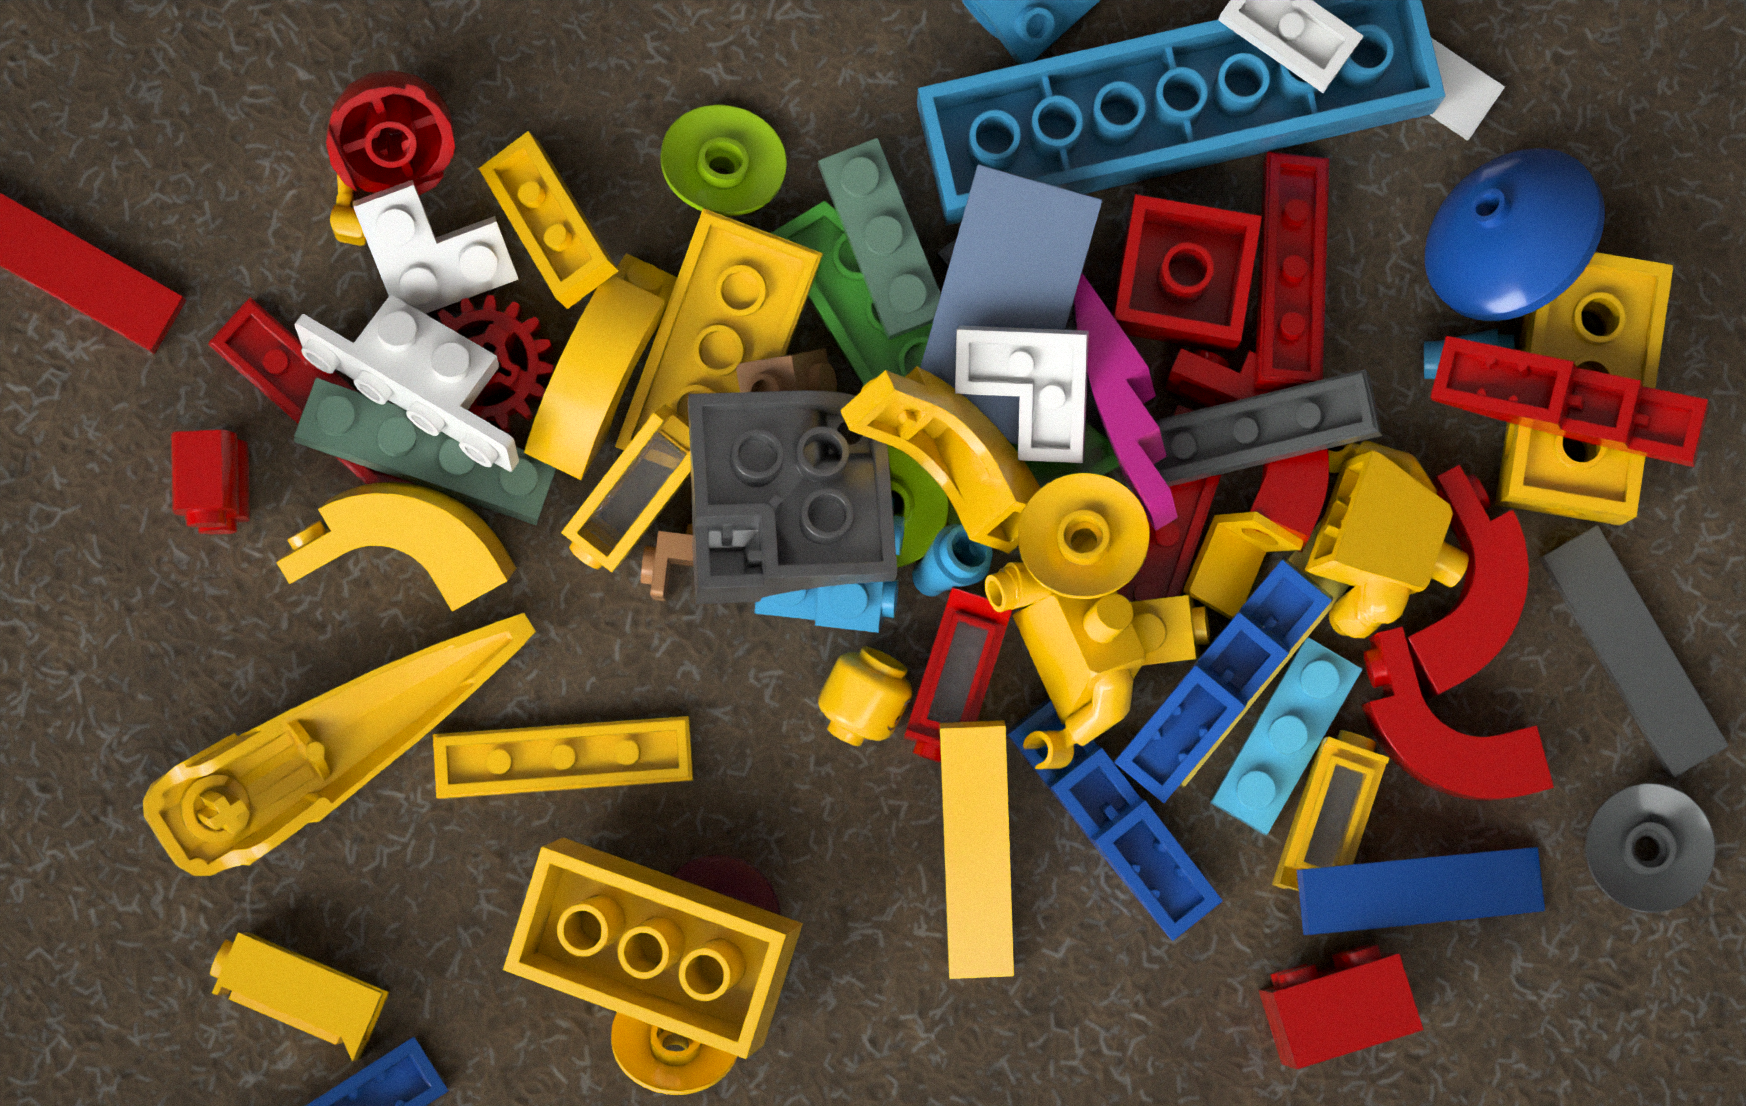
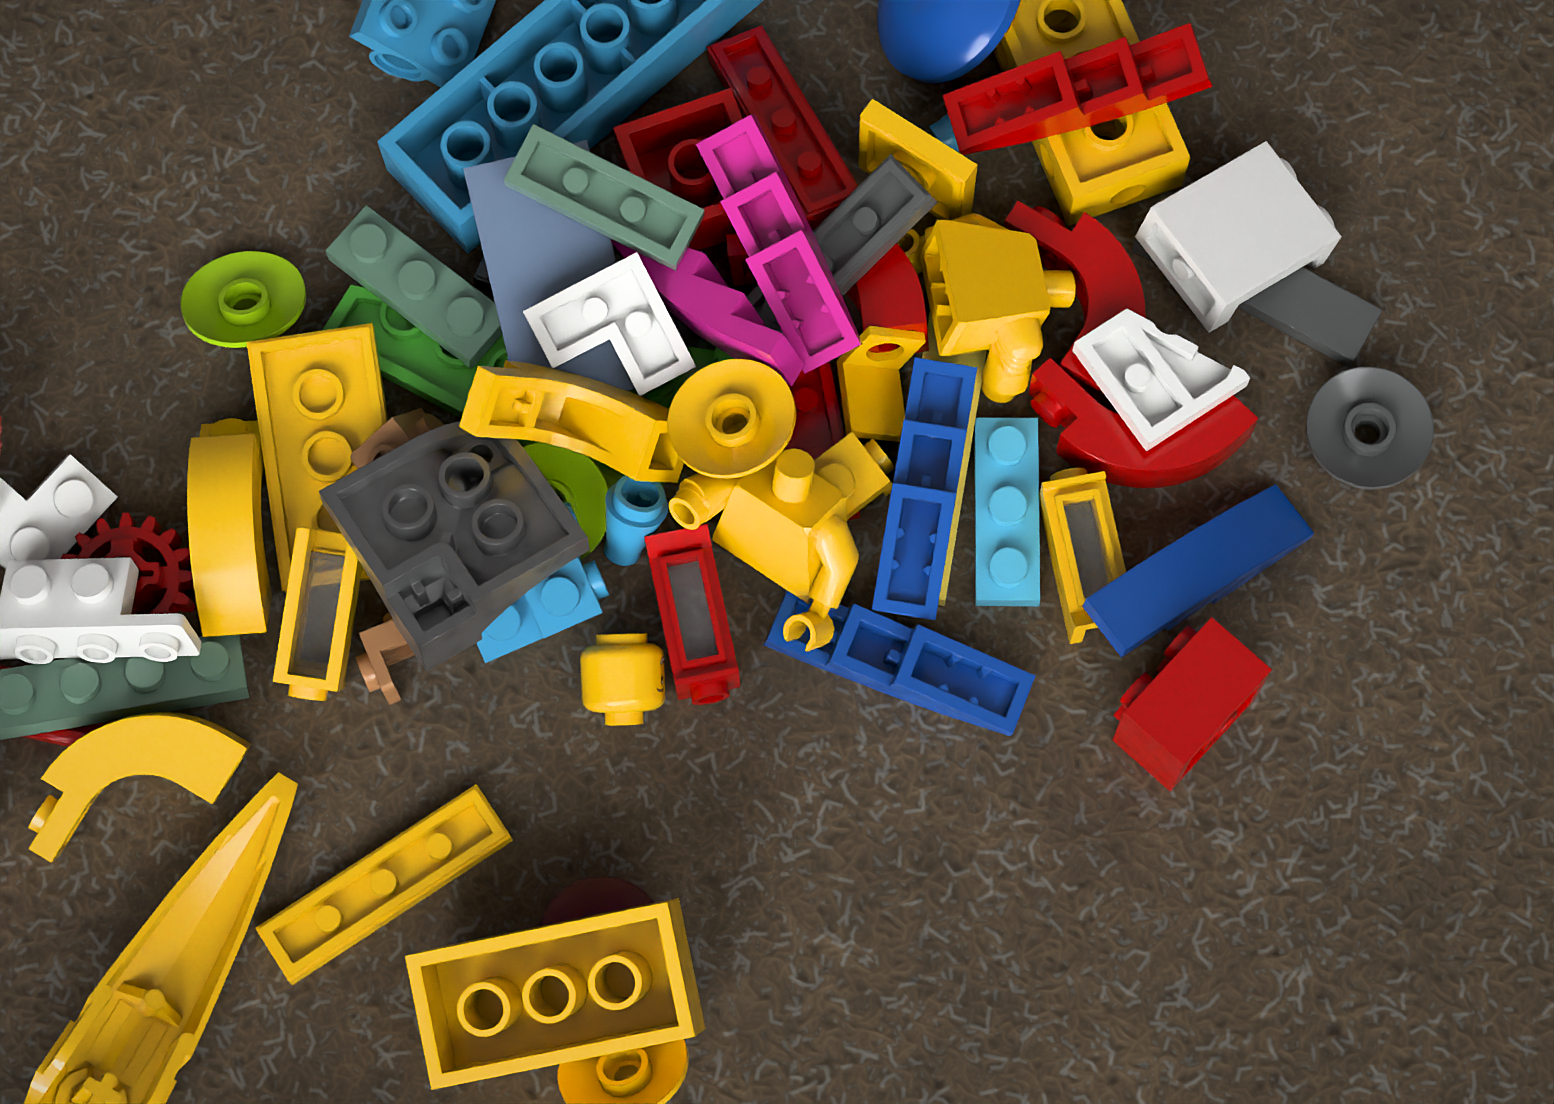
camera: 25 degrees left, 10 degrees down
(548, 220) = (116, 426): yellow plate -> none
(976, 849) = (796, 750): yellow tile -> none
(1086, 266) = (604, 197): none -> sand green plate
(1219, 393) = (779, 243): none -> dark pink slope
(1393, 378) = (936, 166): none -> yellow plate
(1482, 702) = (1154, 377): none -> white wing
(1639, 606) = (1236, 234): none -> white panel

